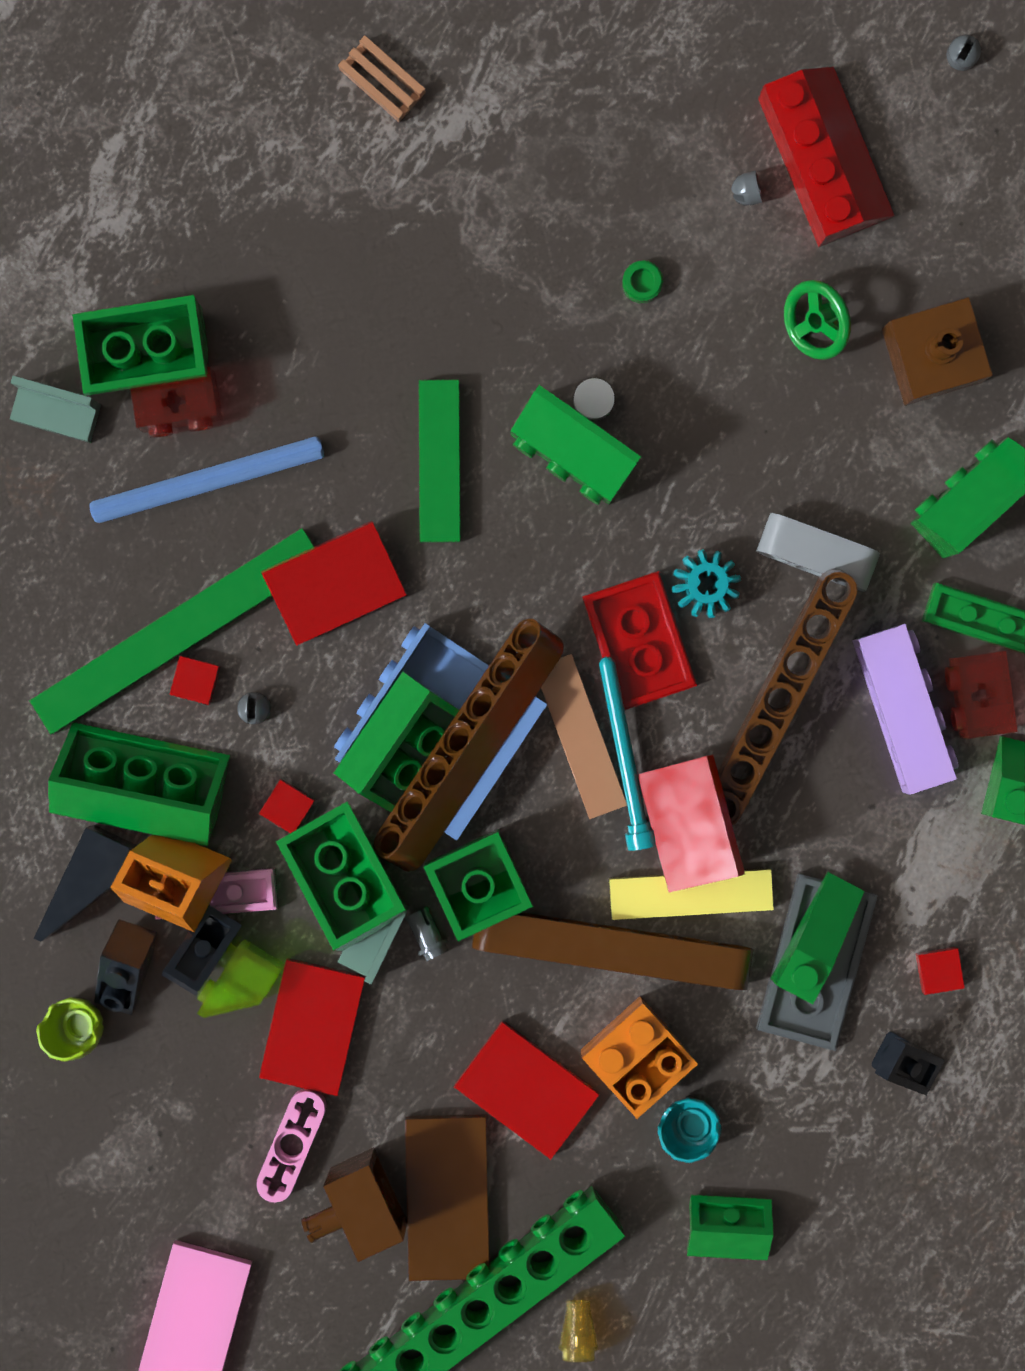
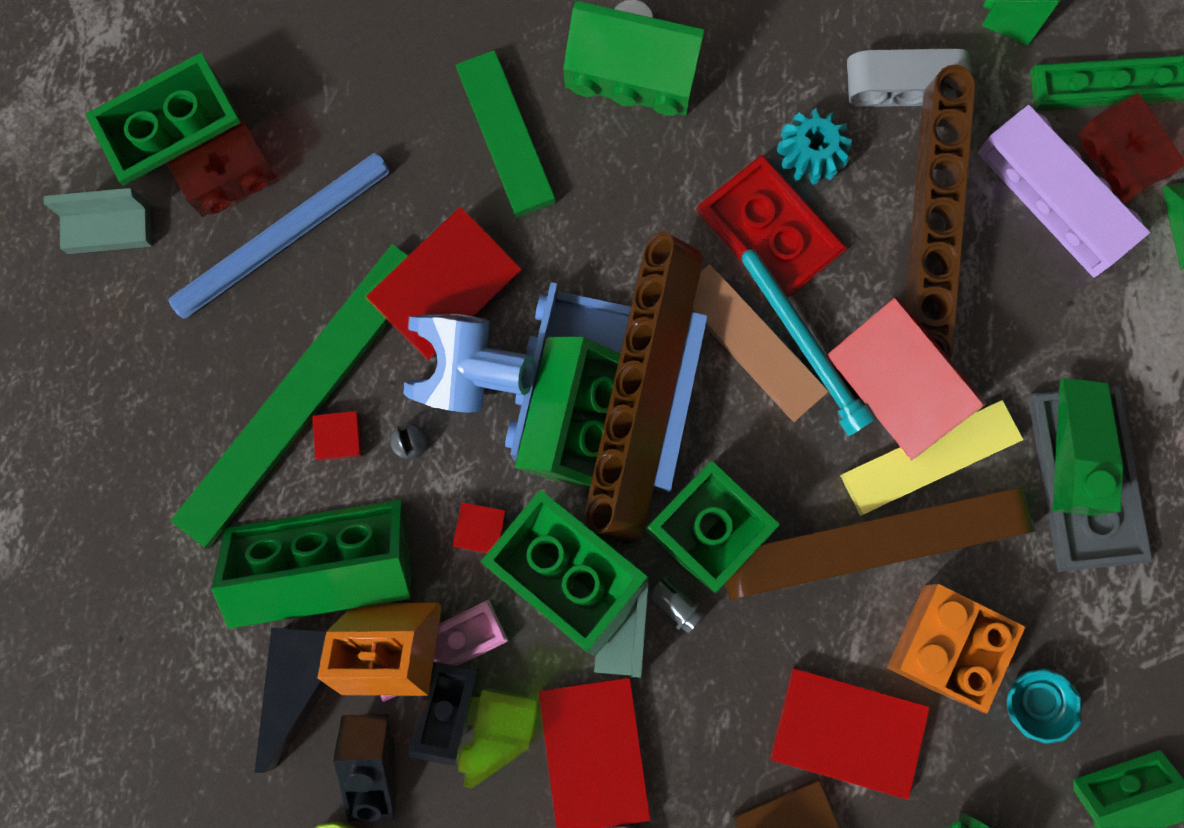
camera: 15 degrees left, 10 degrees down
(323, 666) = (466, 364): none -> medium blue connector

